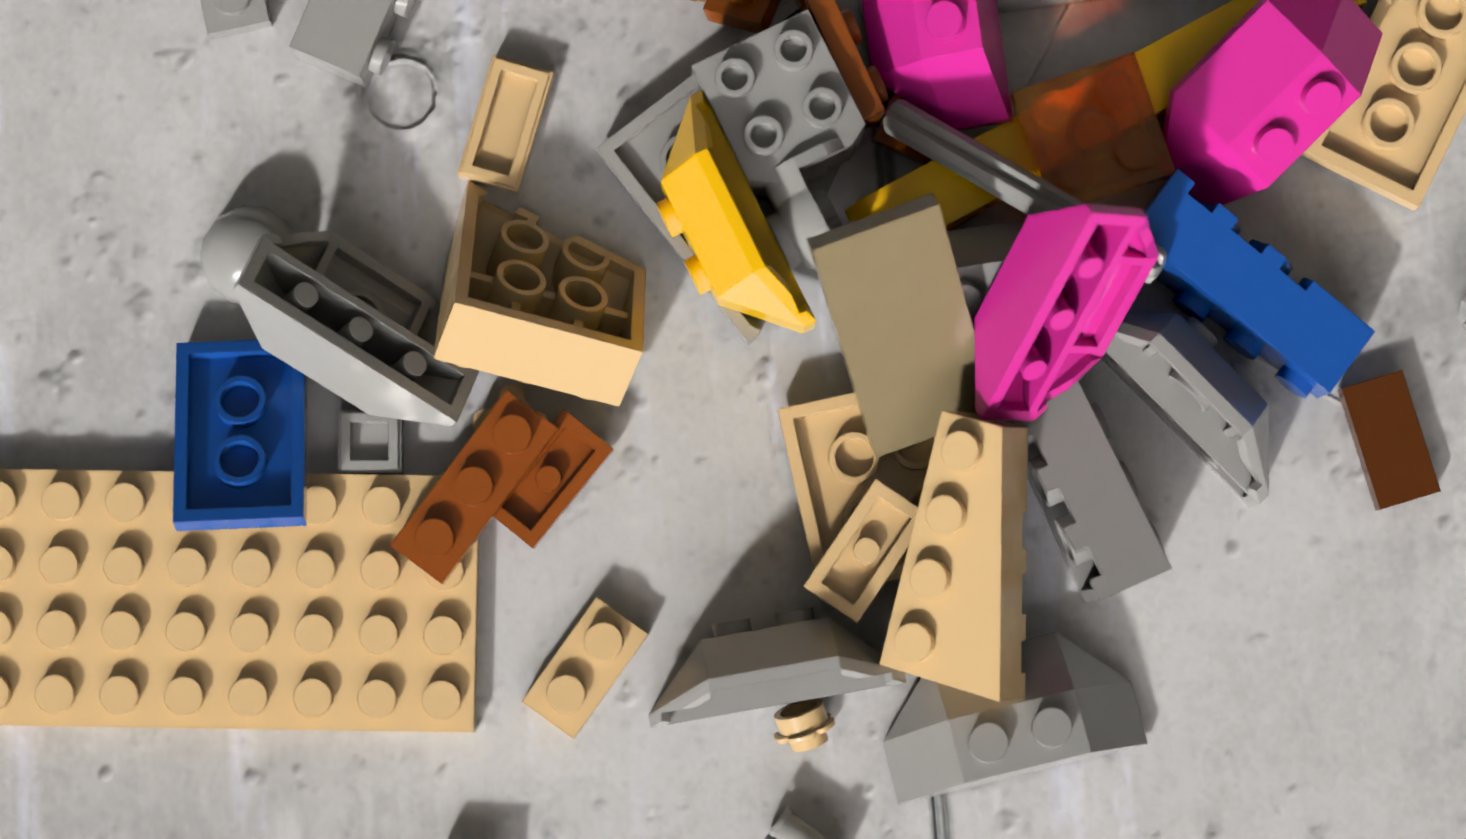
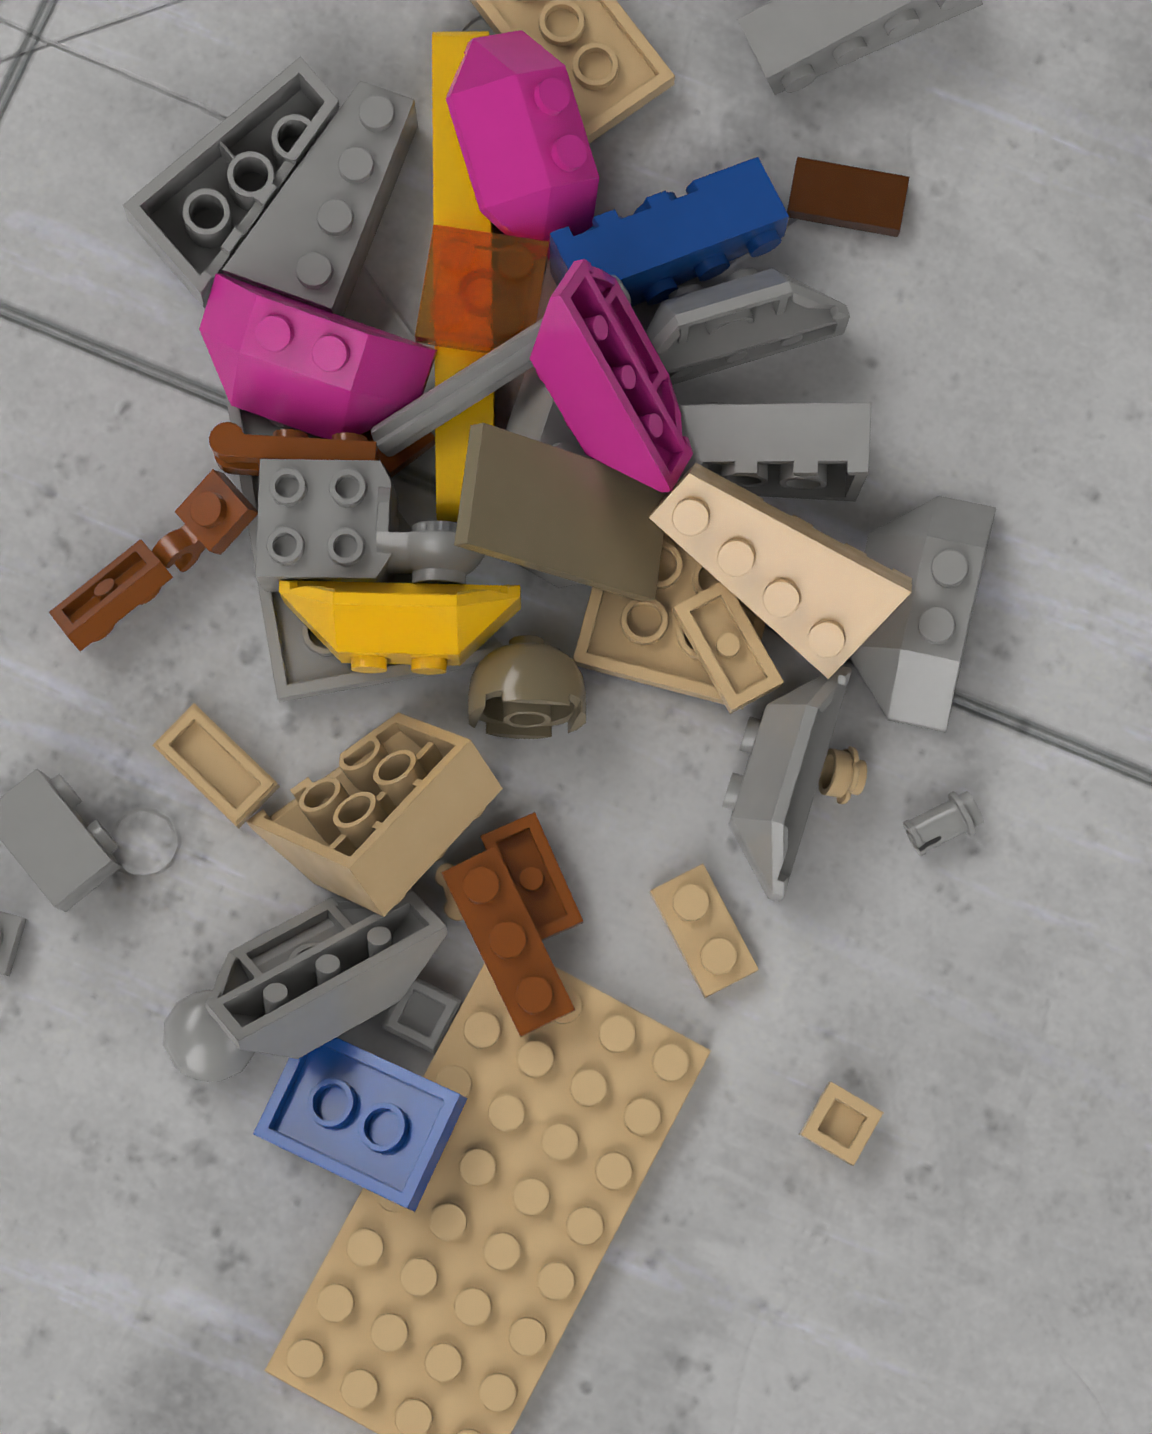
camera: 60 degrees left, 5 degrees down
(725, 379) = (526, 690): none -> dark tan cylinder

